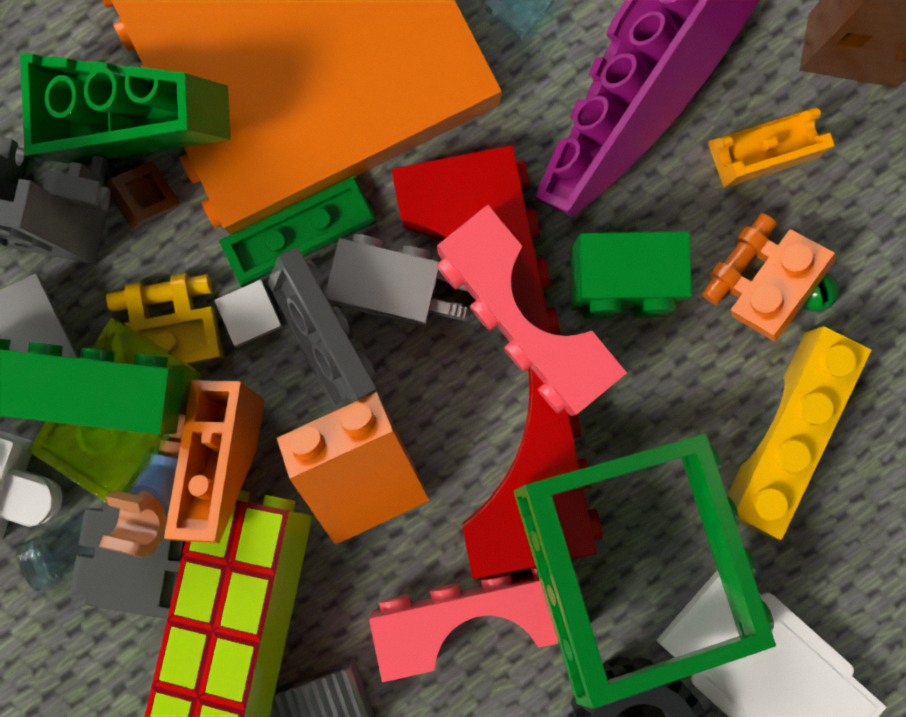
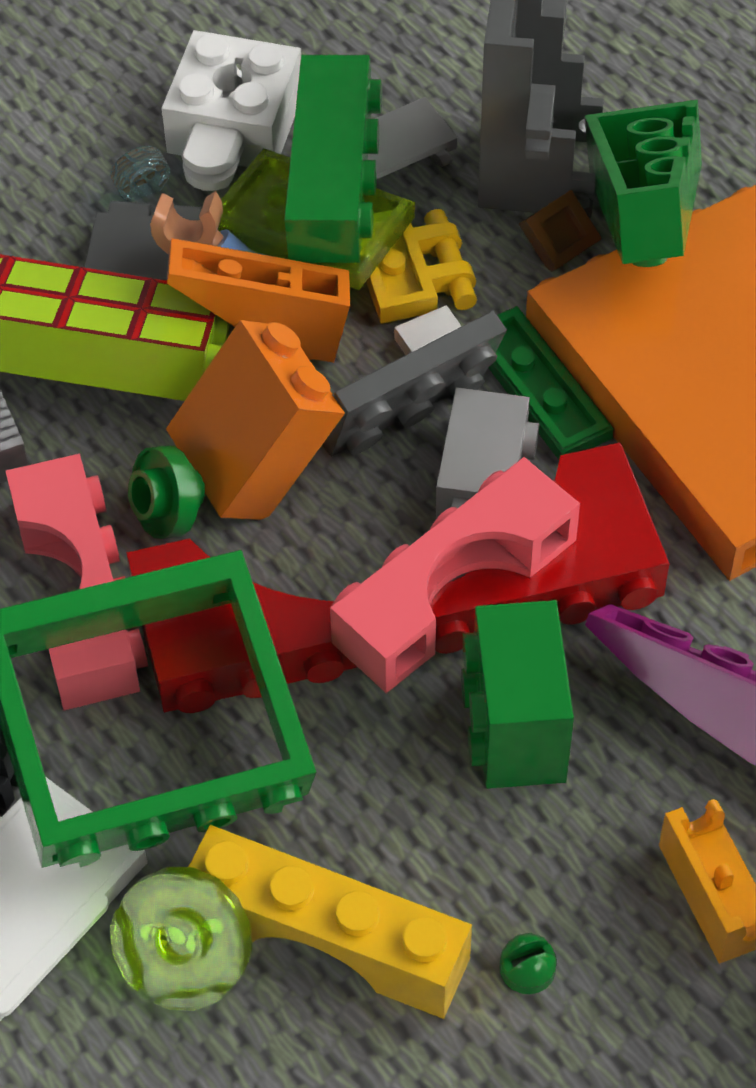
camera: 90 degrees right, 30 degrees down
(403, 545) = (165, 492): none -> green plate
(779, 287) = (529, 898): orange plate -> none
(808, 537) = (181, 938): none -> clear neon green tile

